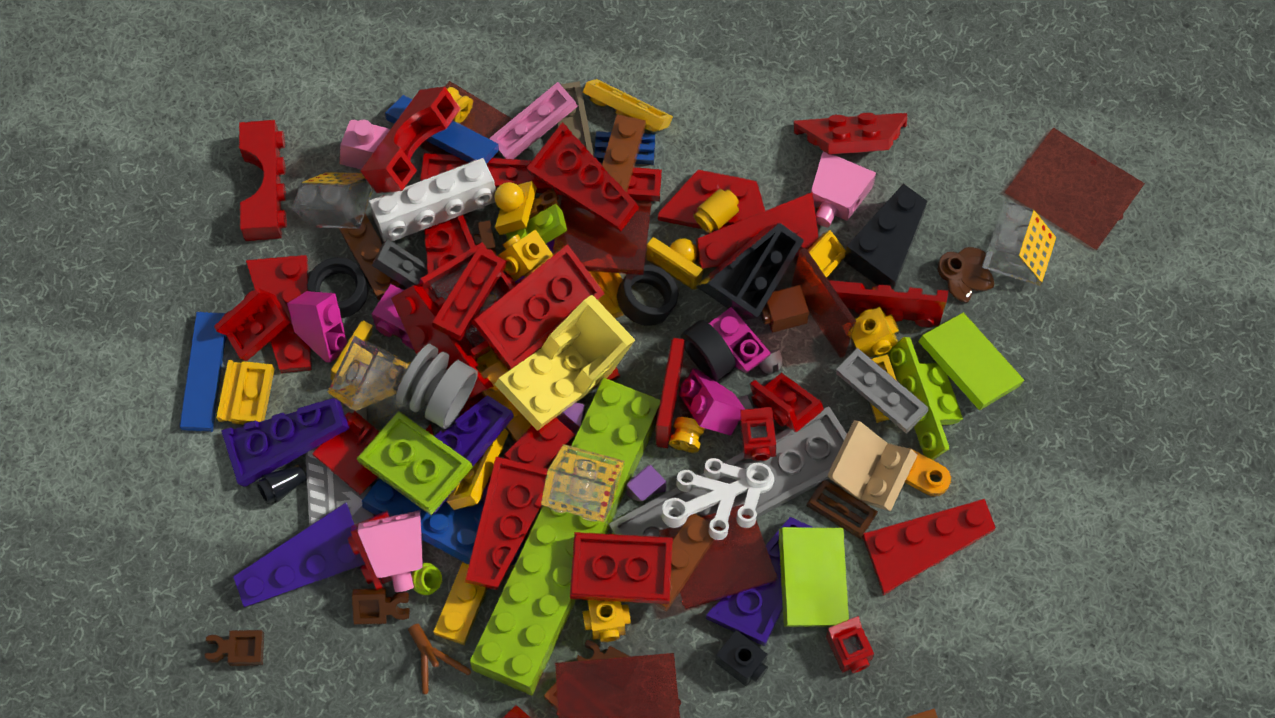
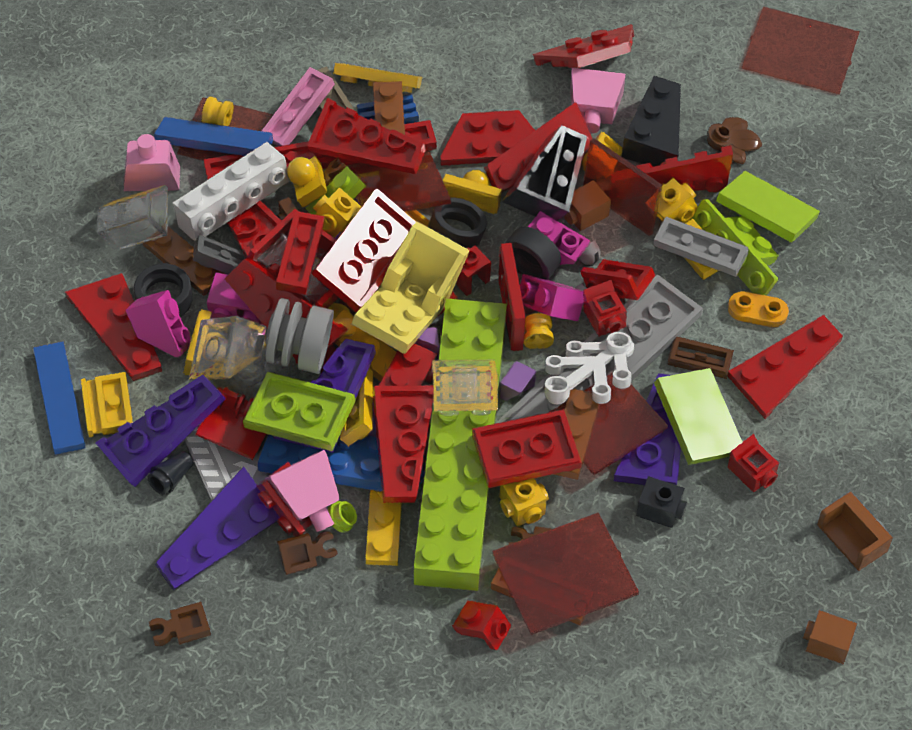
camera: 20 degrees left, 10 degrees down
(253, 323) = (94, 339): red bracket -> none
(262, 213) = (65, 245): red arch -> none
(427, 114) = (182, 164): red arch -> none
(429, 652) = (364, 577): dark orange plant -> none
(645, 344) = (477, 264): none -> red window
(717, 210) = (495, 138): yellow brick -> none
(871, 467) = (717, 314): tan bracket -> none
(1020, 244) = (772, 102): clear slope -> none

